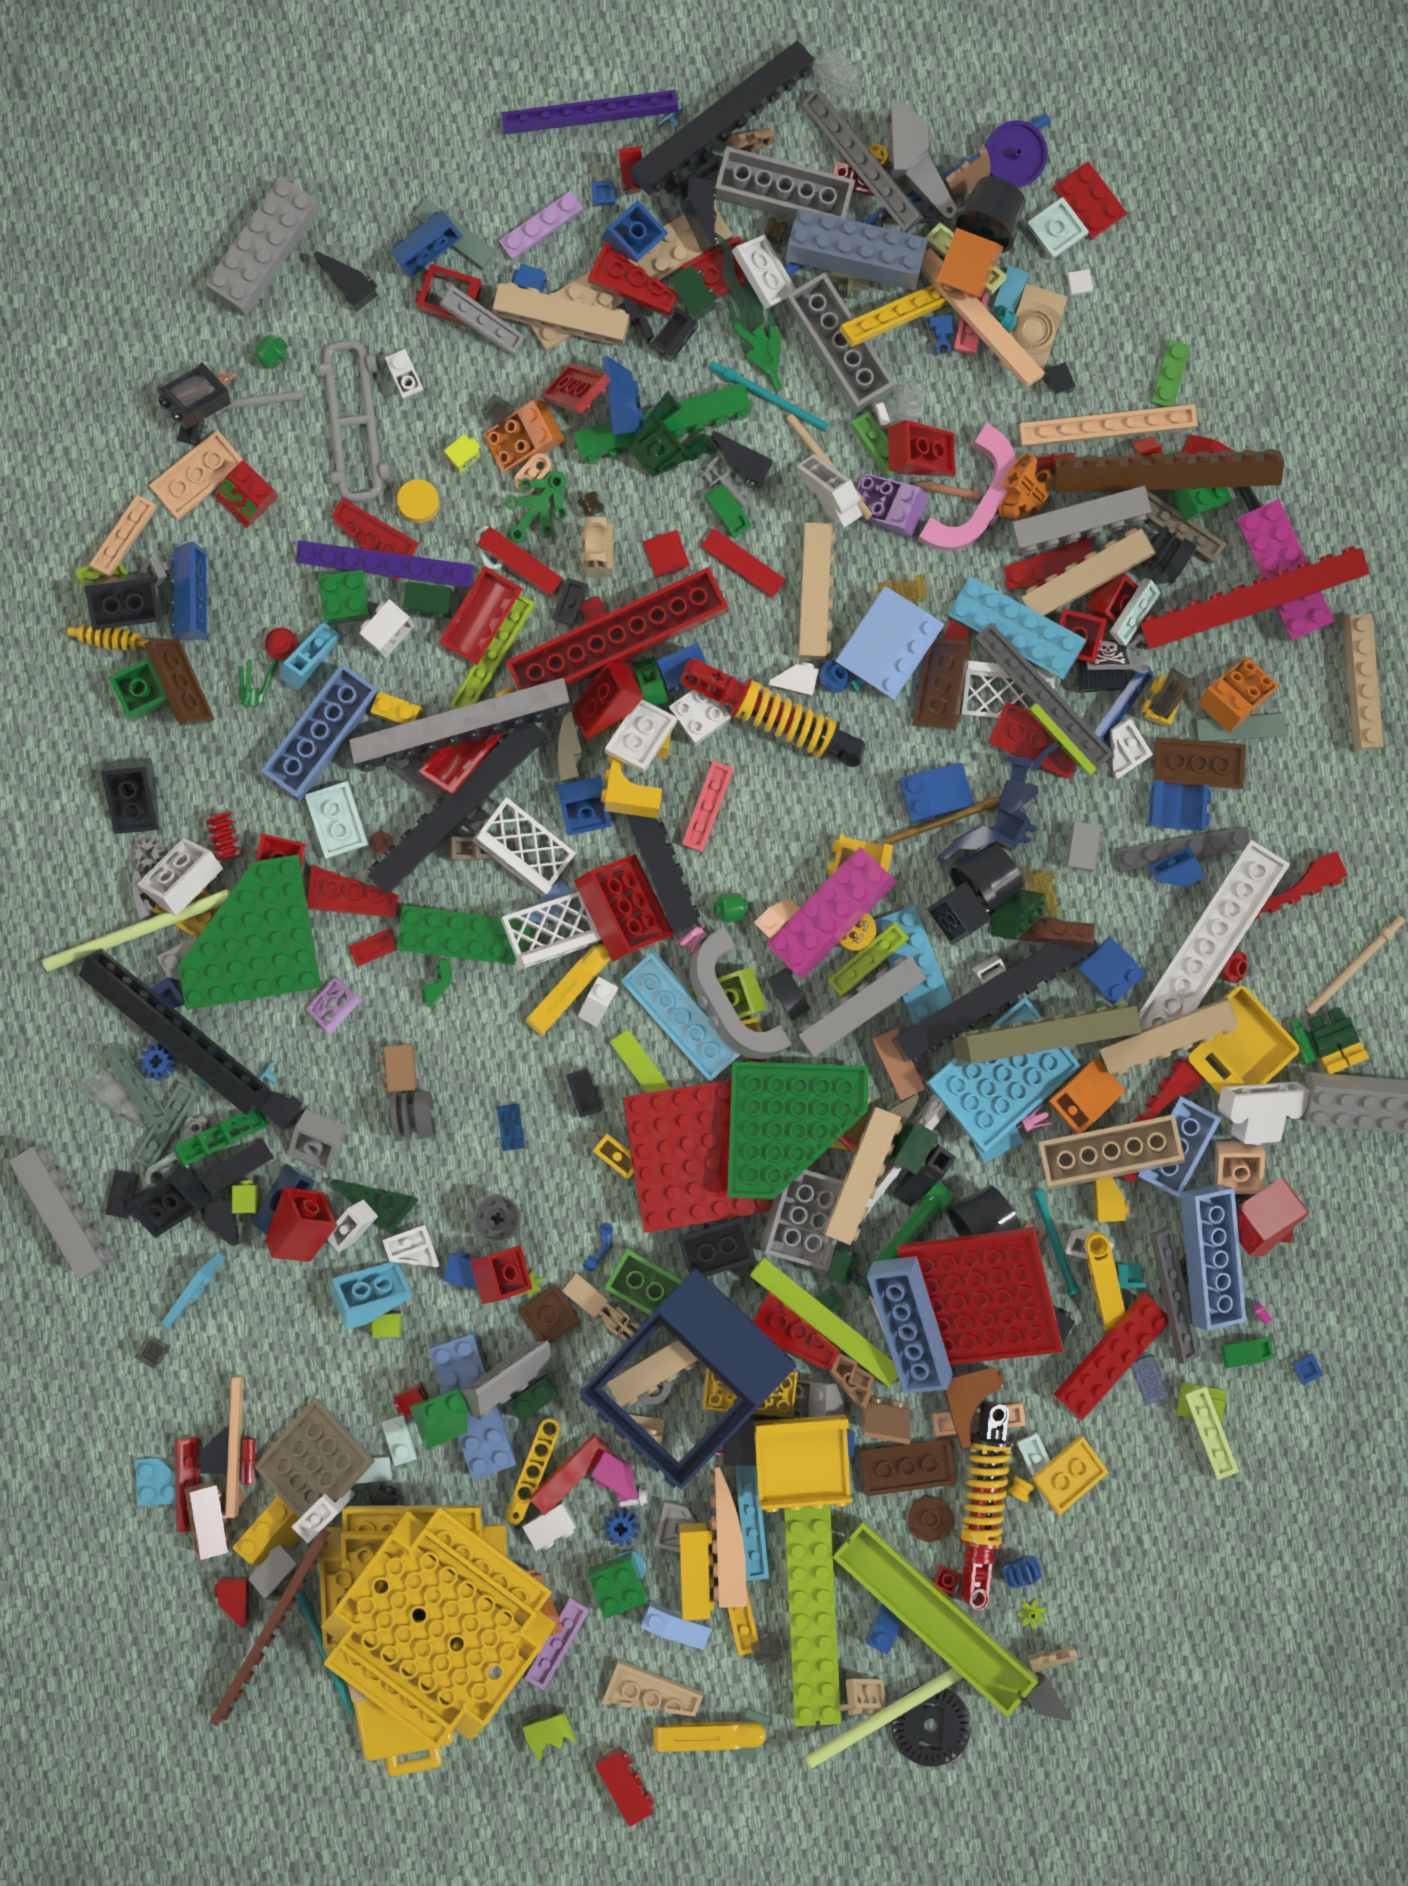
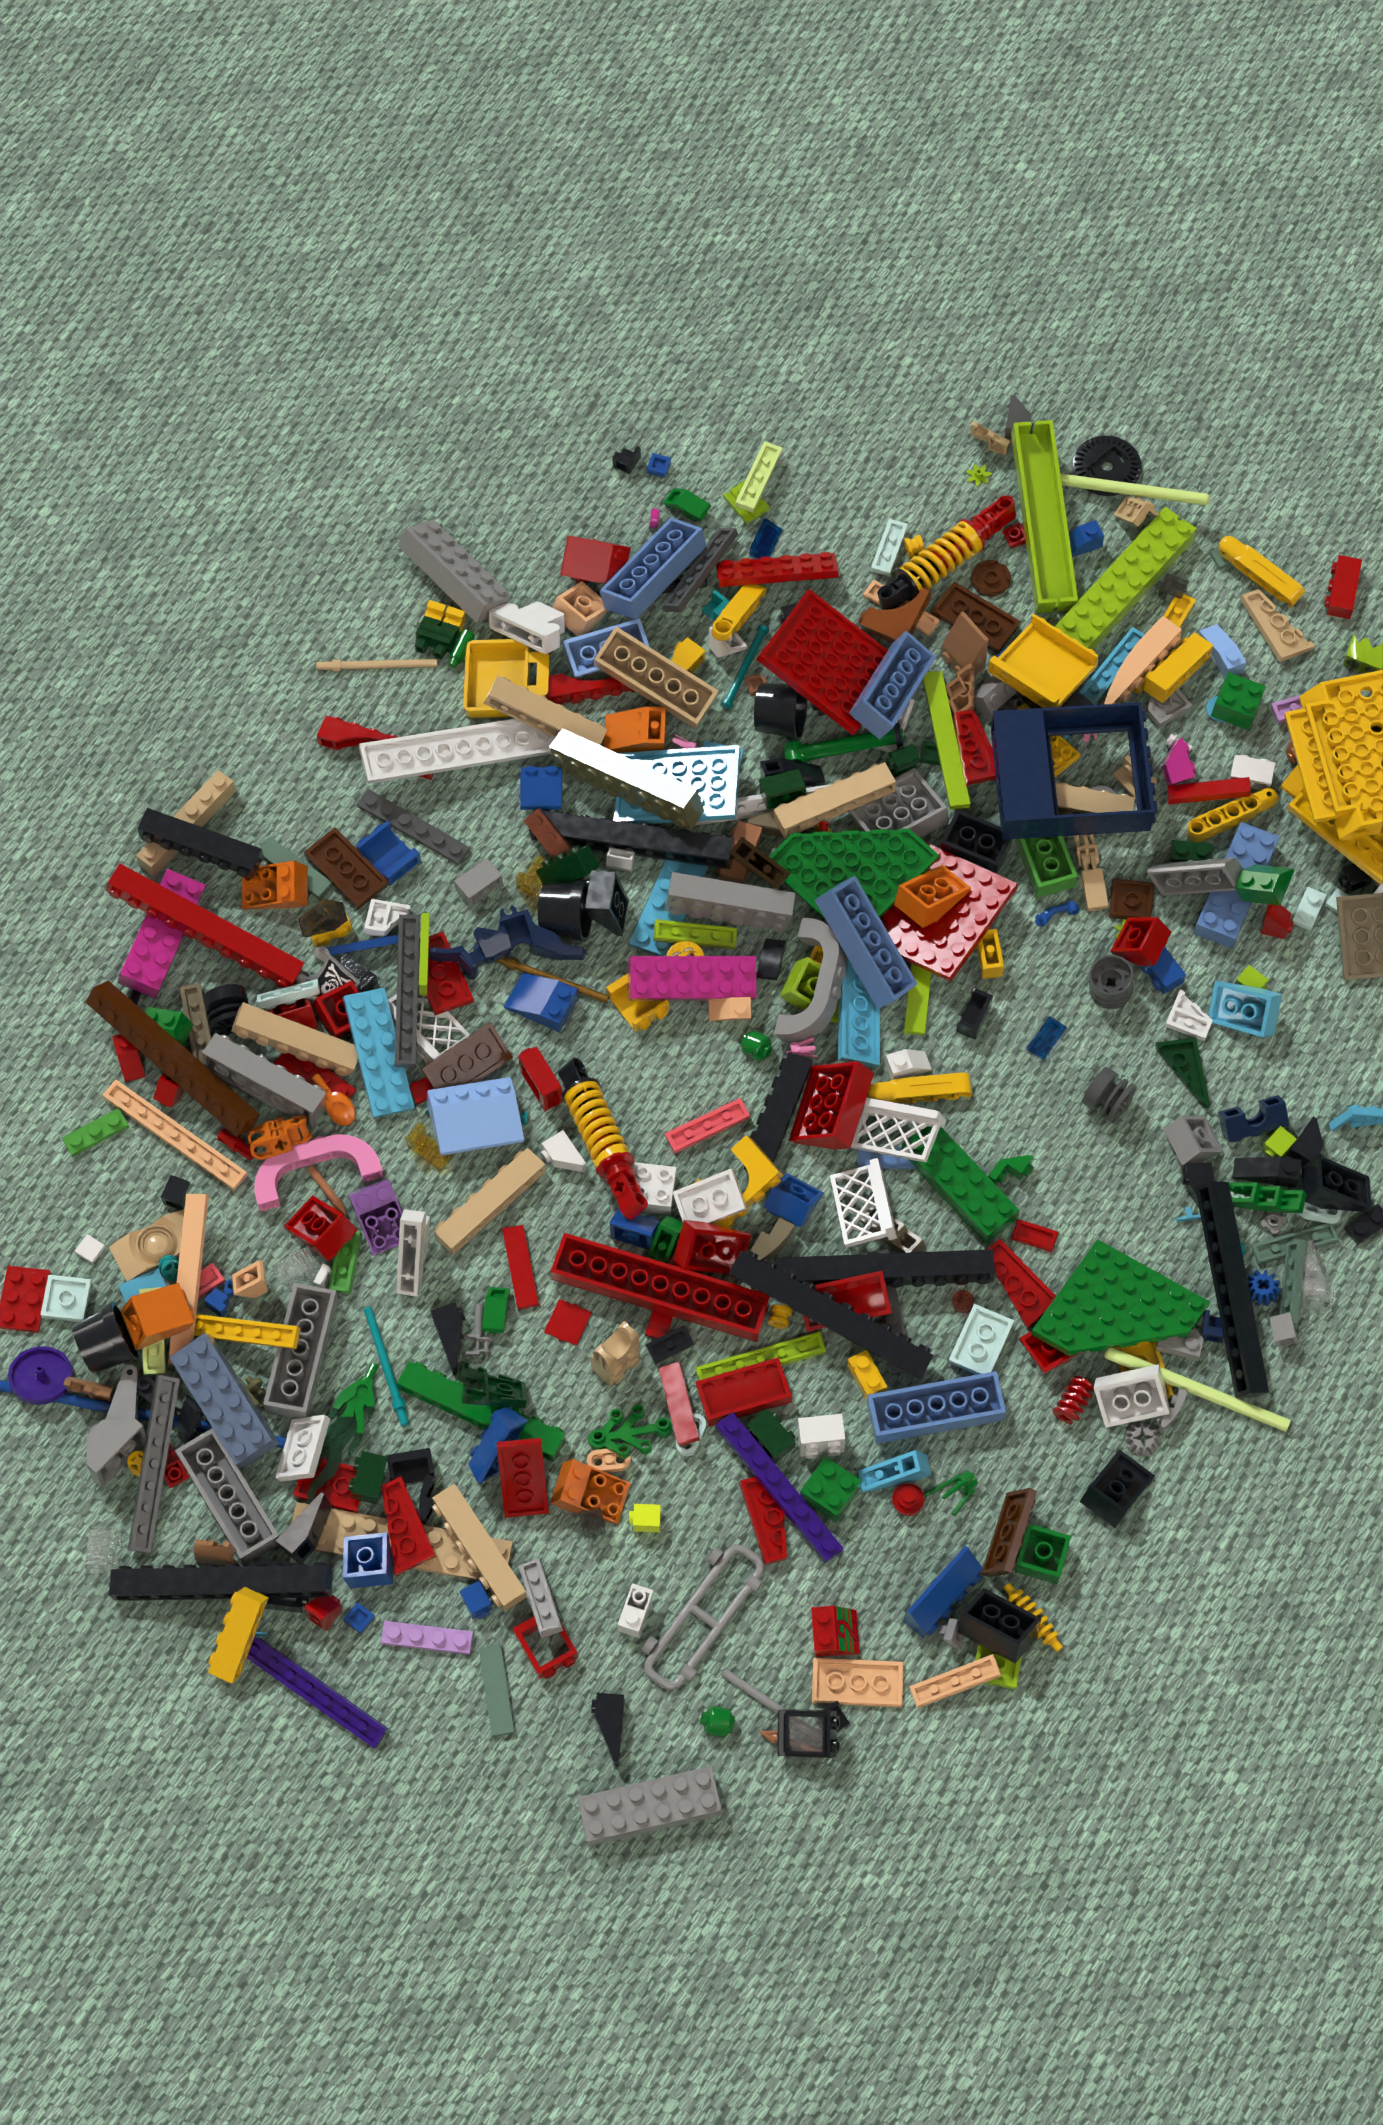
camera: 125 degrees left, 20 degrees down
(110, 1038) = (1284, 1330): none -> light grey panel
(300, 1225) = (1254, 1088): red slope -> none
(325, 997) = (1113, 1230): lavender piece -> none
(352, 1225) = (1219, 1060): white brick -> none
(399, 1068) = (1089, 1137): medium nougat brick -> none
(418, 501) = (711, 1513): yellow head -> none
(426, 243) = (526, 1693): blue slope -> none
(590, 504) = (588, 1400): dark brown wheel -> none
(627, 1522) = (1198, 739): blue gear -> none
(673, 90) = (237, 1634): none -> yellow brick
(704, 1158) = (930, 895): none -> orange slope
(717, 1064) = (866, 942): none -> medium blue brick
(775, 230) = (263, 1476): dark brown wheel -> none
(813, 446) = (391, 1298): tan bar -> none
(834, 677) = (535, 1132): blue plate -> none
(866, 213) = (189, 1421): none -> black slope
(866, 1056) = (759, 863): none -> dark brown slope
(871, 721) = (540, 1078): none -> red window
(930, 360) = (250, 1281): none -> light nougat slope
(1008, 561) = (337, 1104): none -> orange piece
(1022, 1571) = (961, 498): blue gear -> none
(1069, 1475) = (874, 527): yellow tile -> none
(1178, 869) = (431, 813): blue slope -> none
(1235, 967) = (457, 722): red plate -> none
(1330, 664) = (200, 843): none -> black brick
(1339, 1349) = (626, 459): none -> black panel

